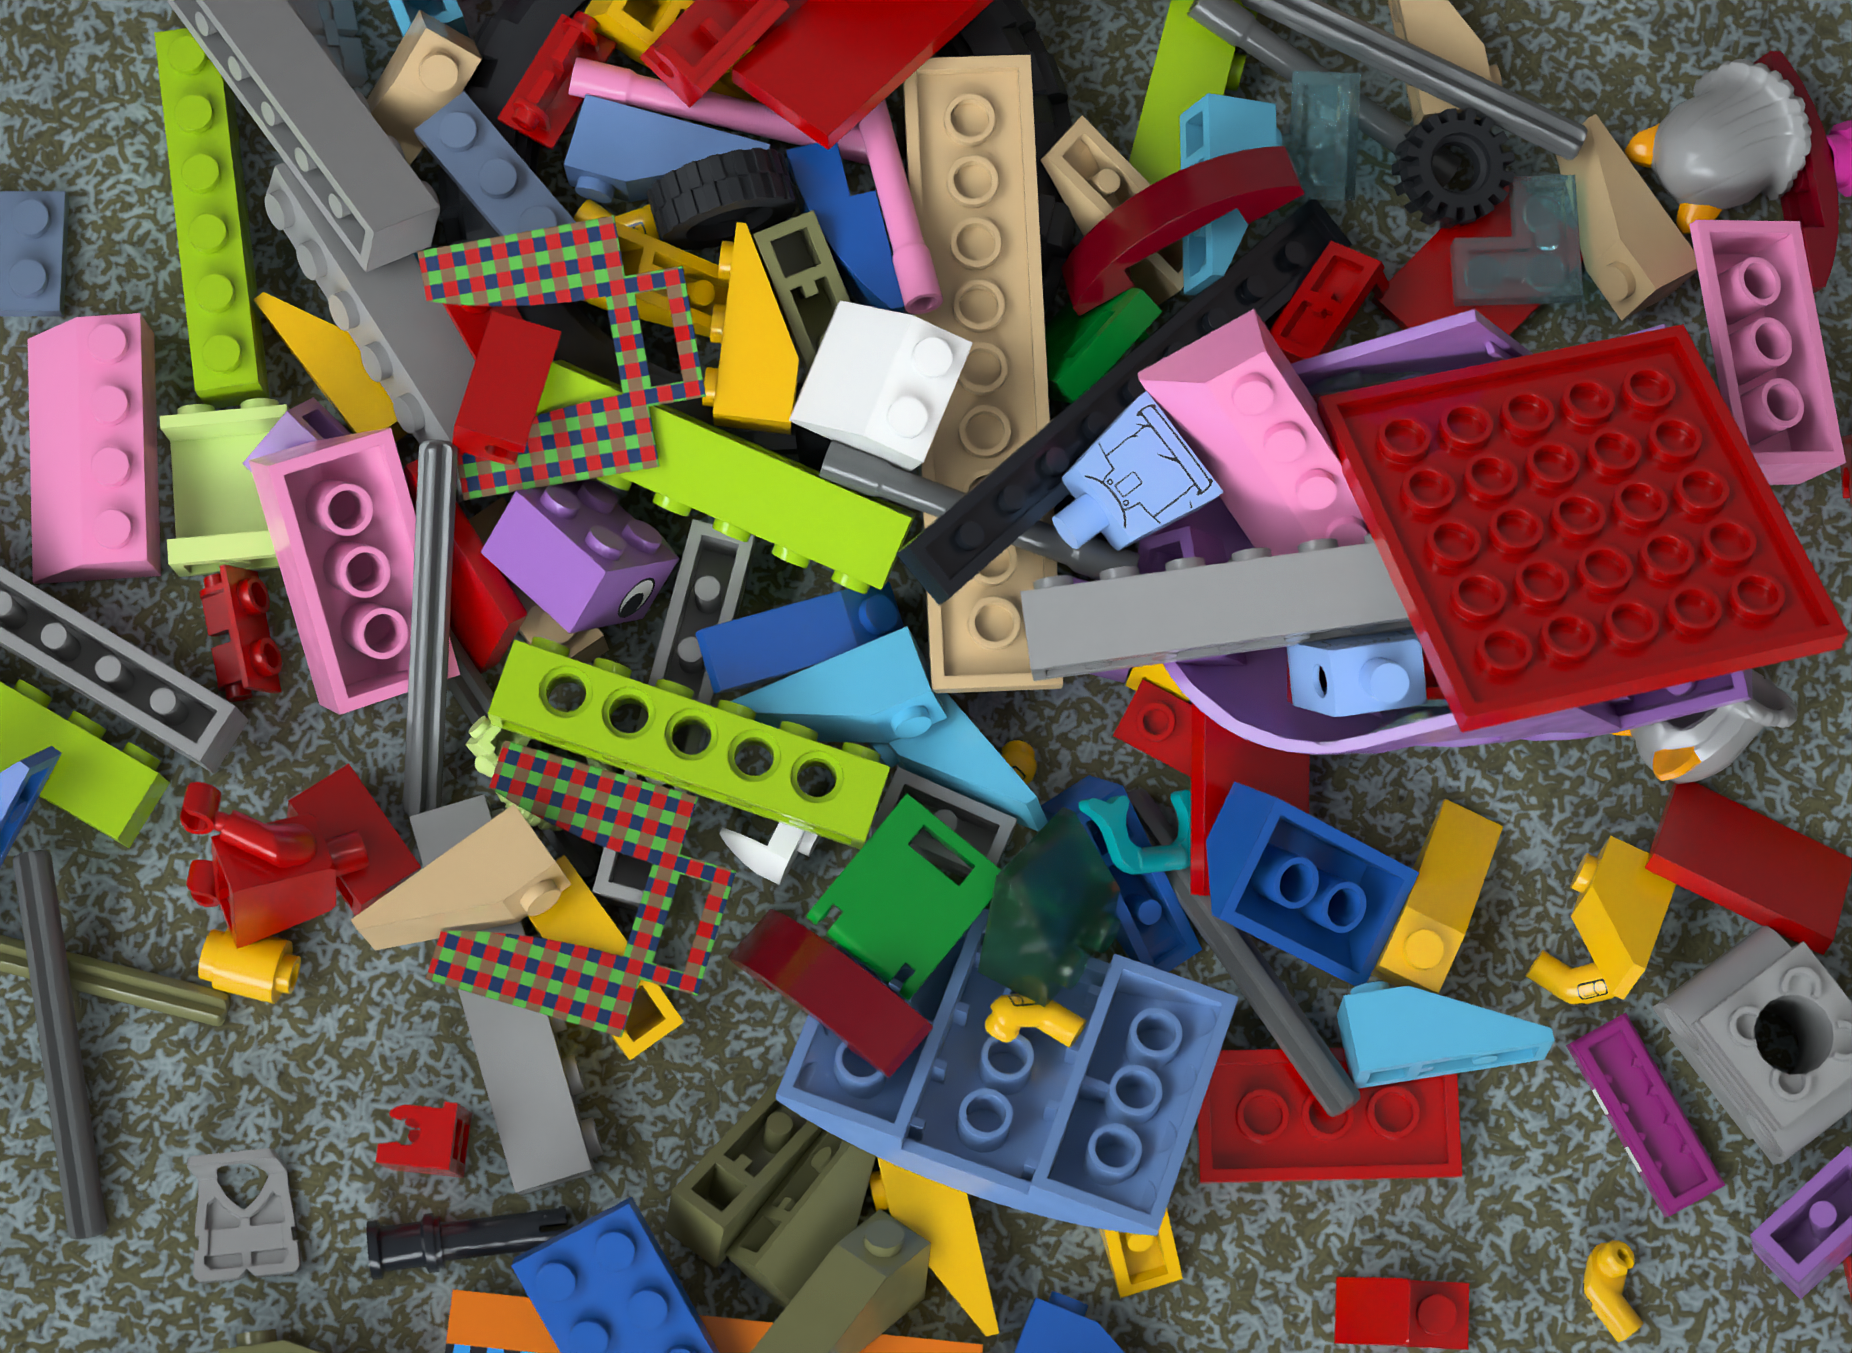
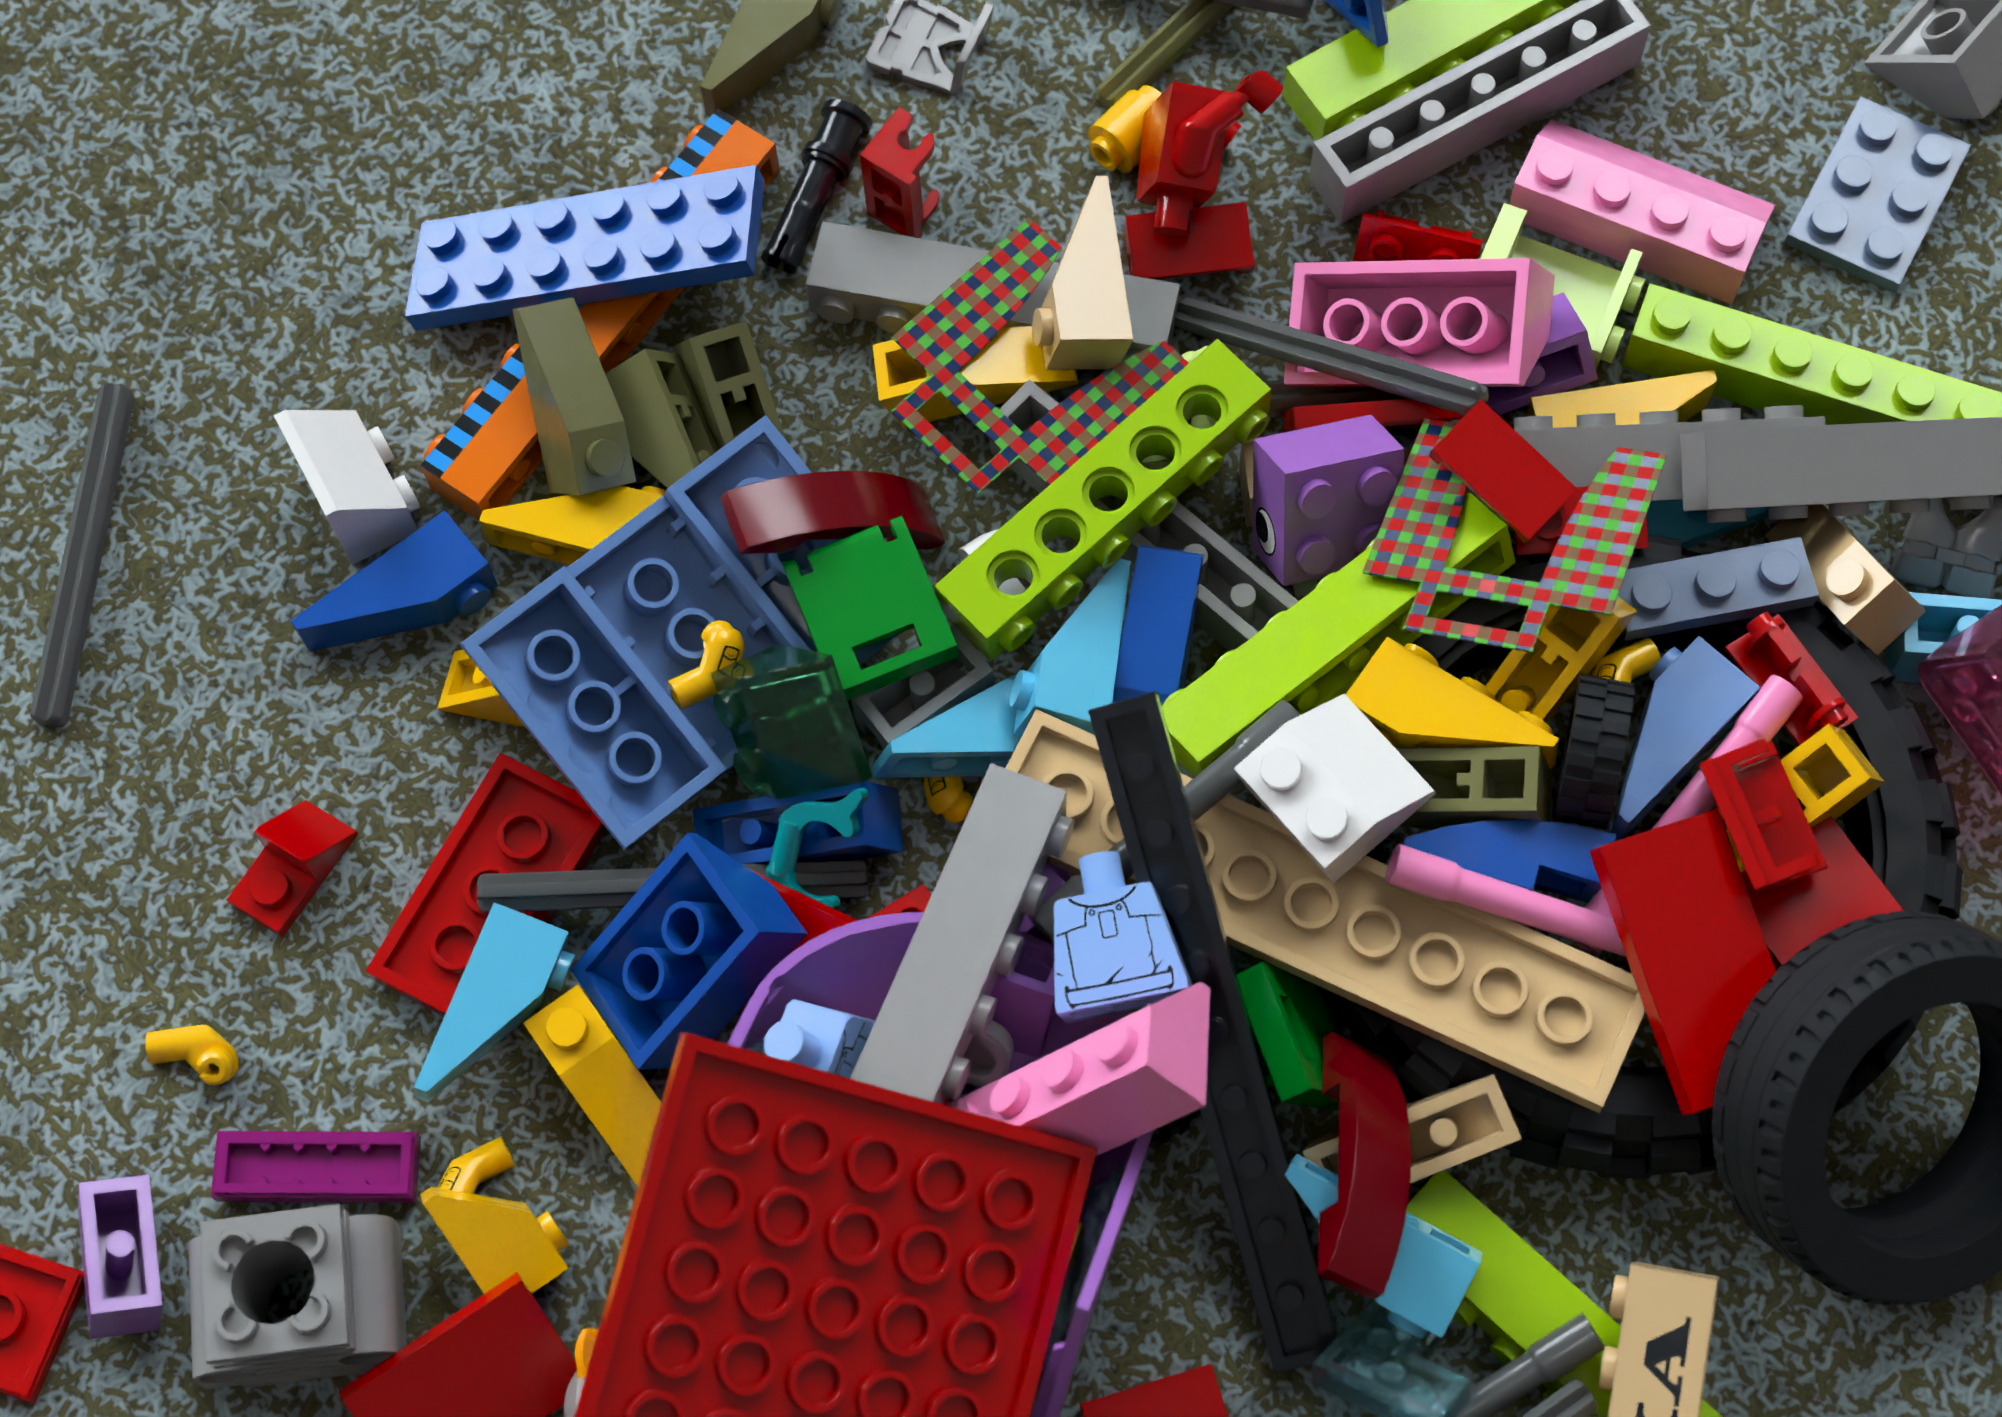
camera: 125 degrees right, 10 degrees down
(1327, 301) = (1217, 1292): red hinge -> none

